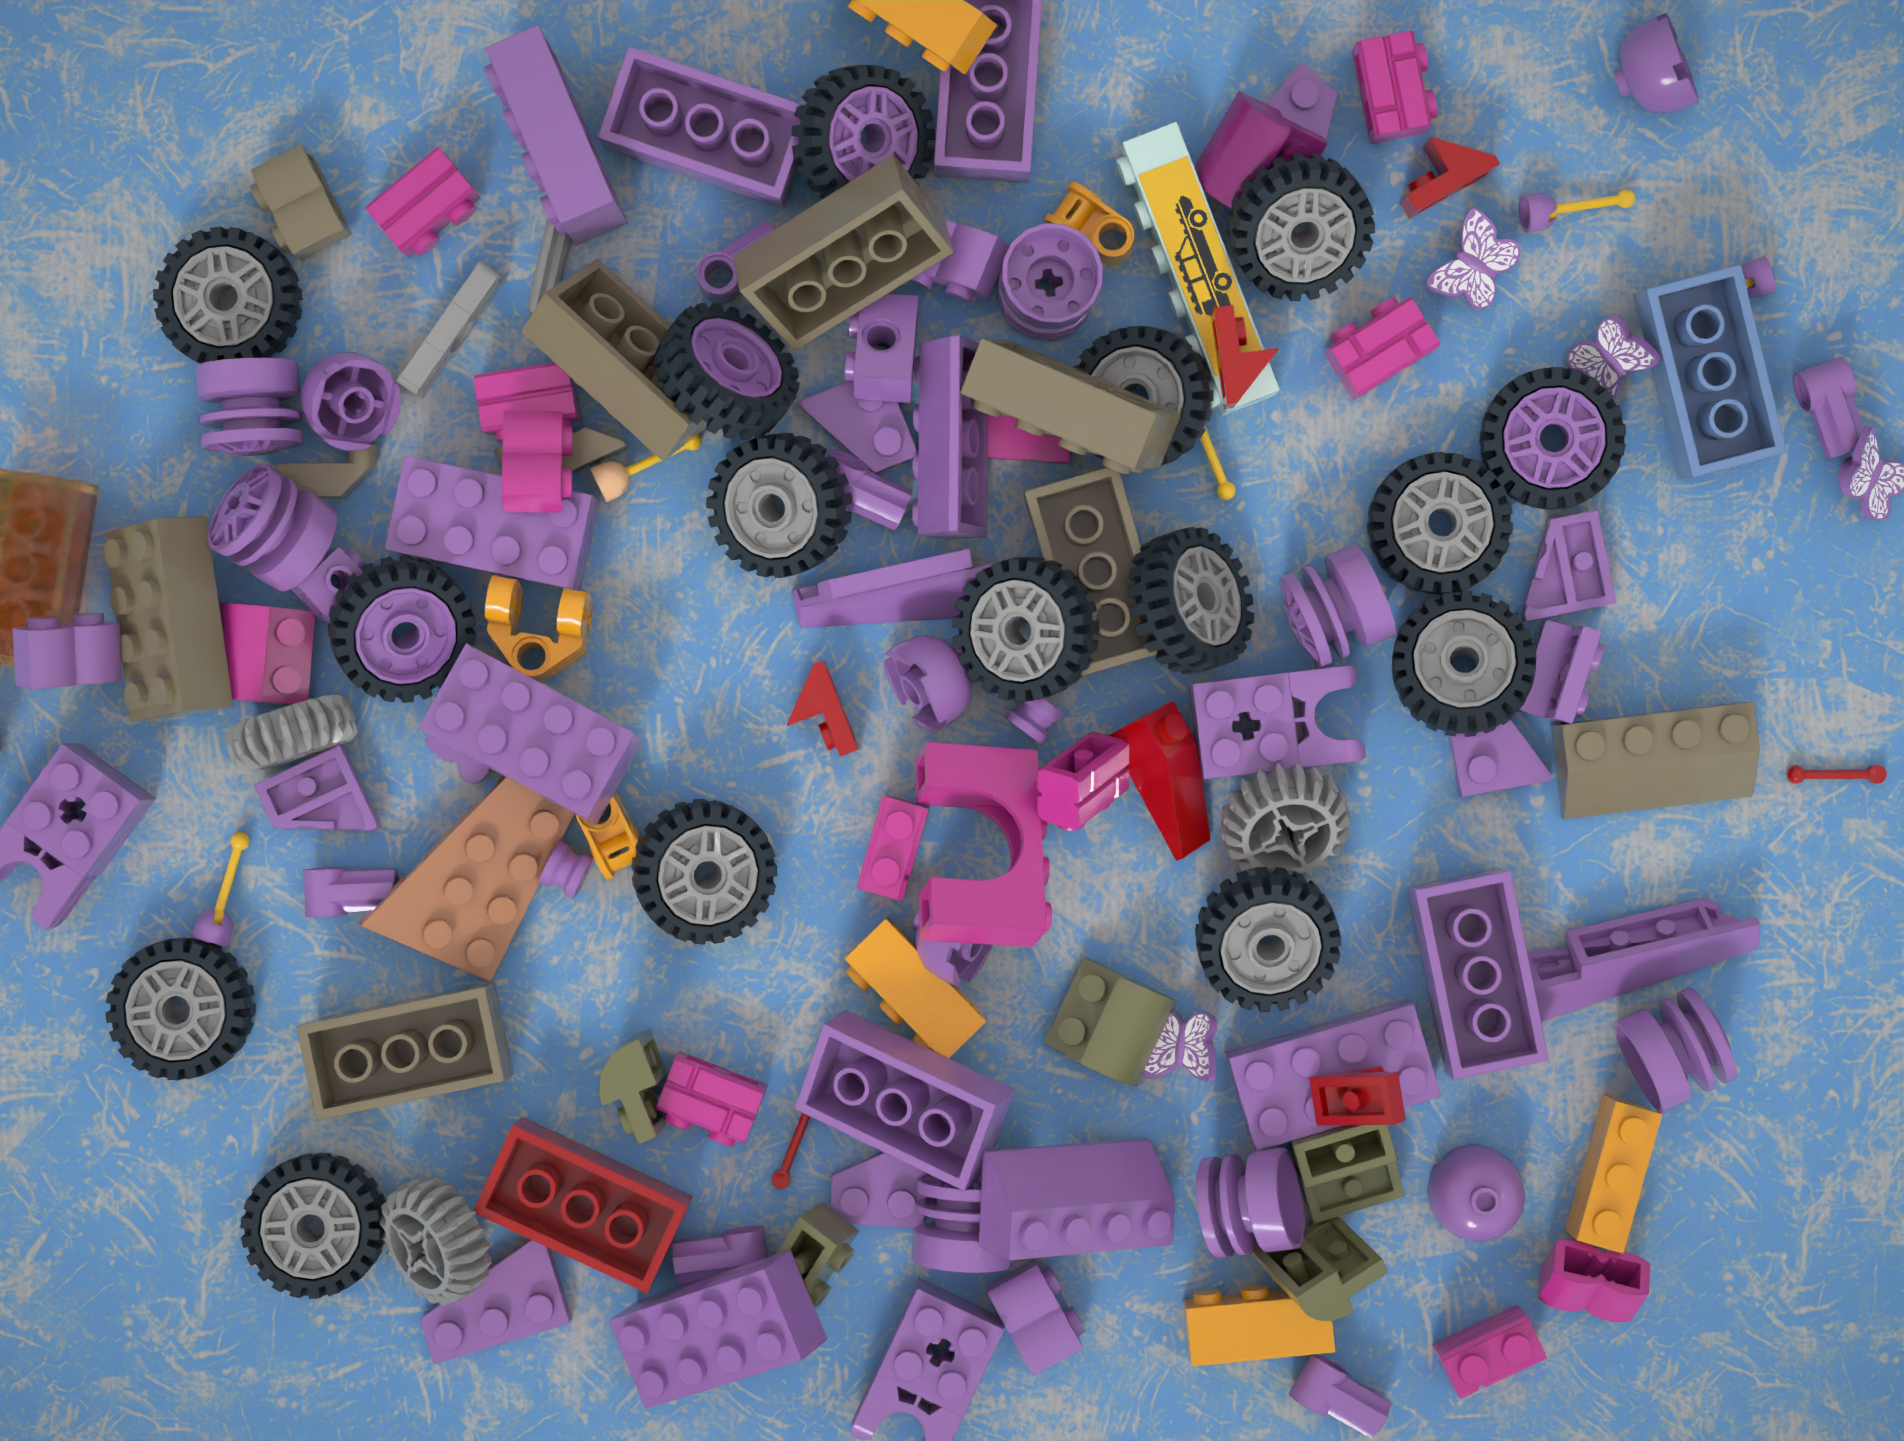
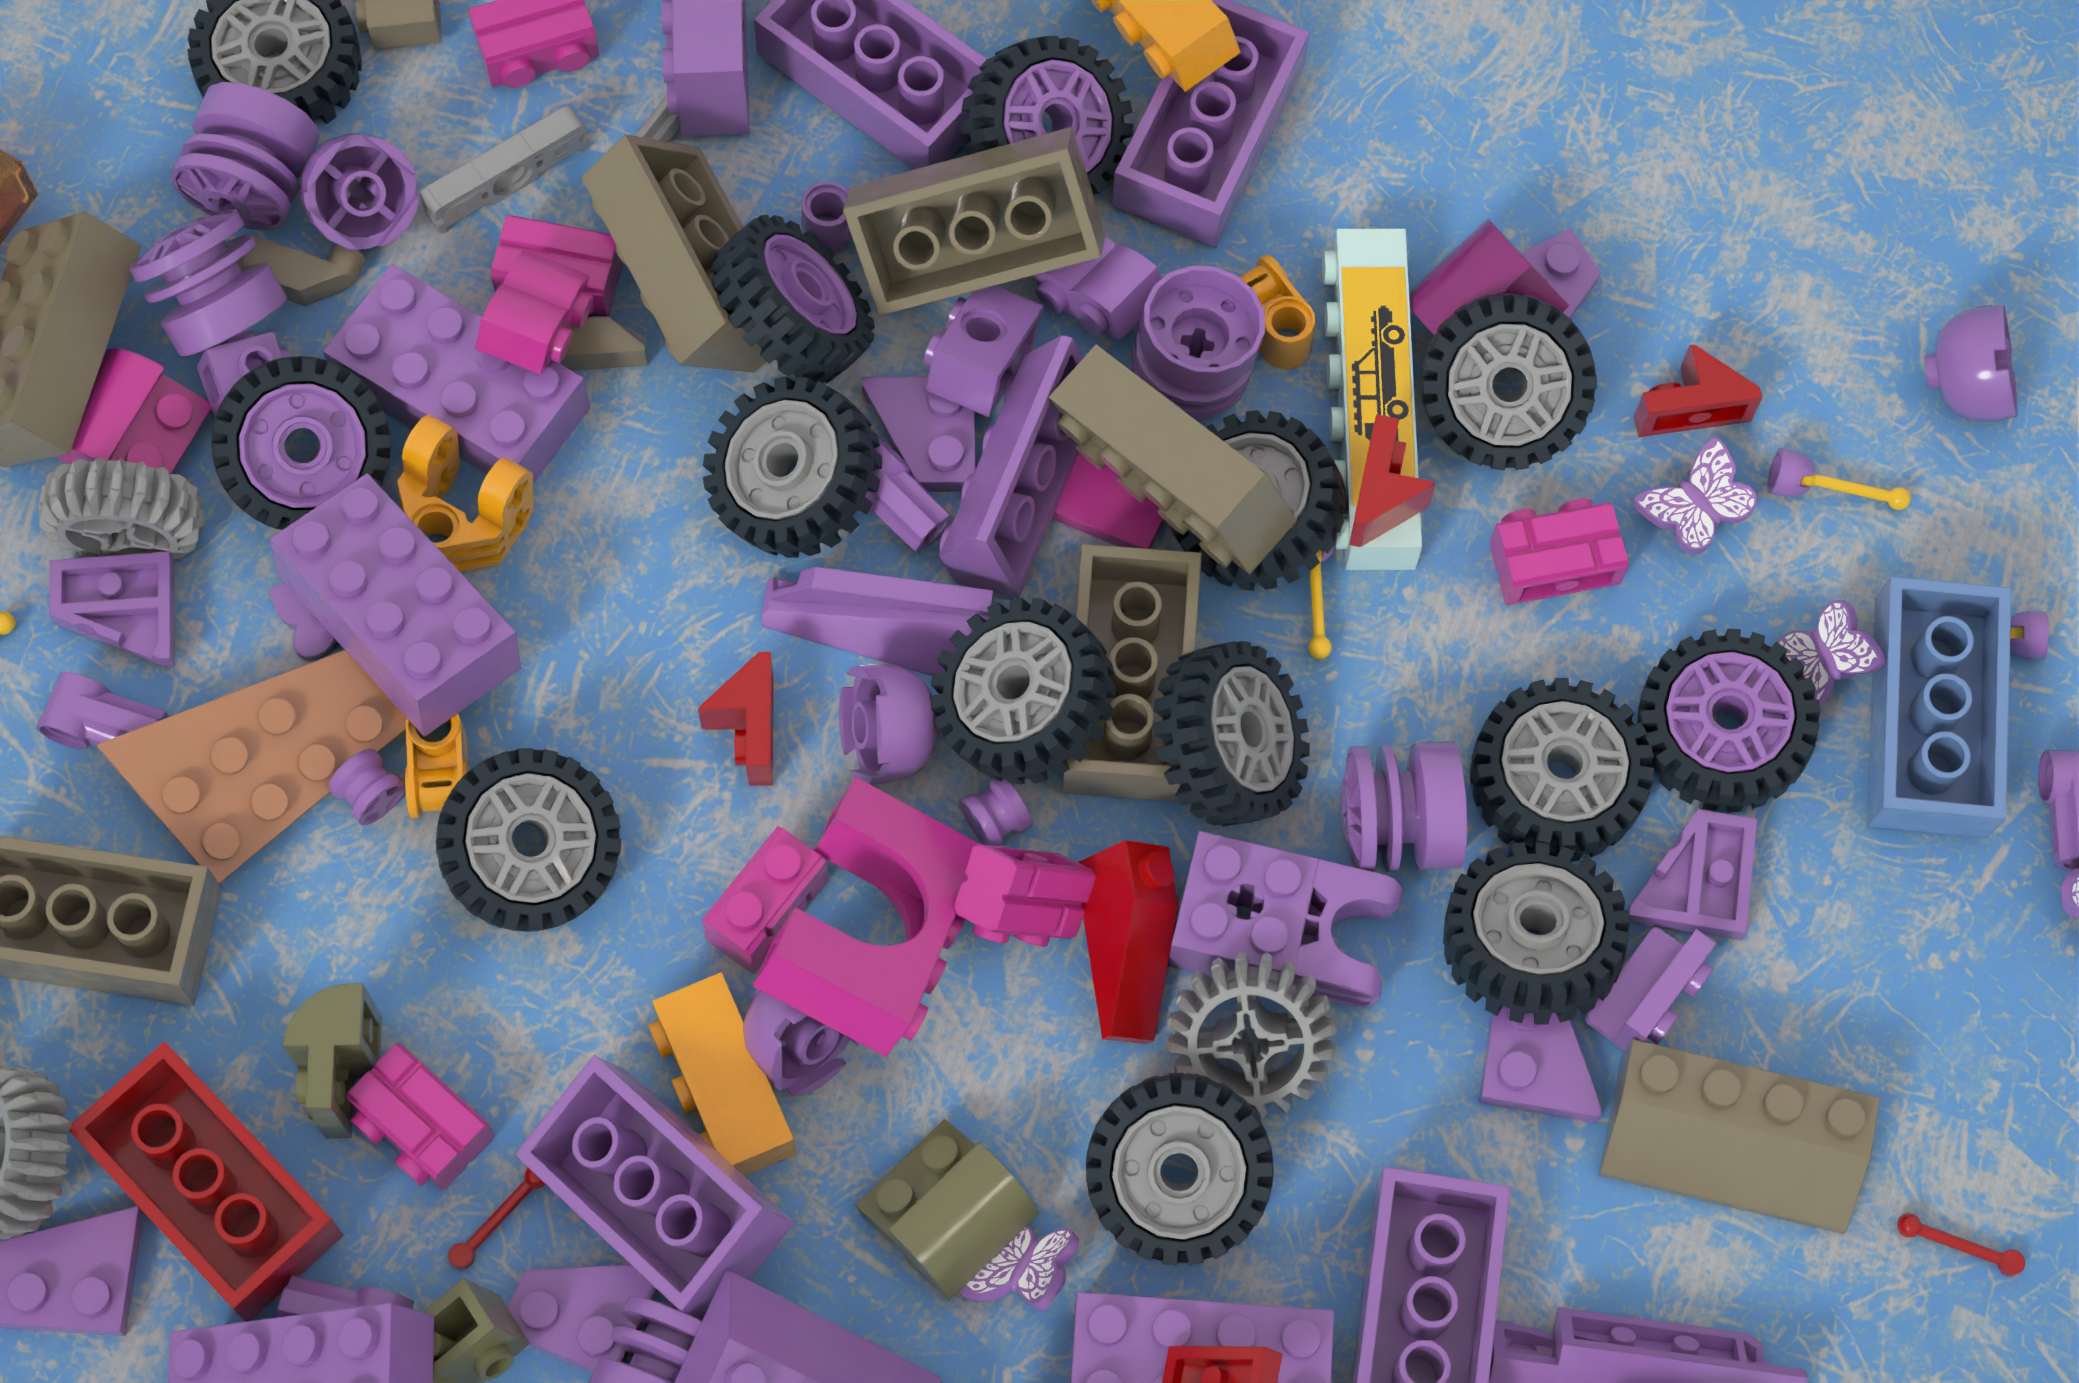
camera: 20 degrees right, 20 degrees down
(614, 477) = (617, 384): light nougat hinge -> none
(1393, 86) = (1666, 286): dark pink brick -> none

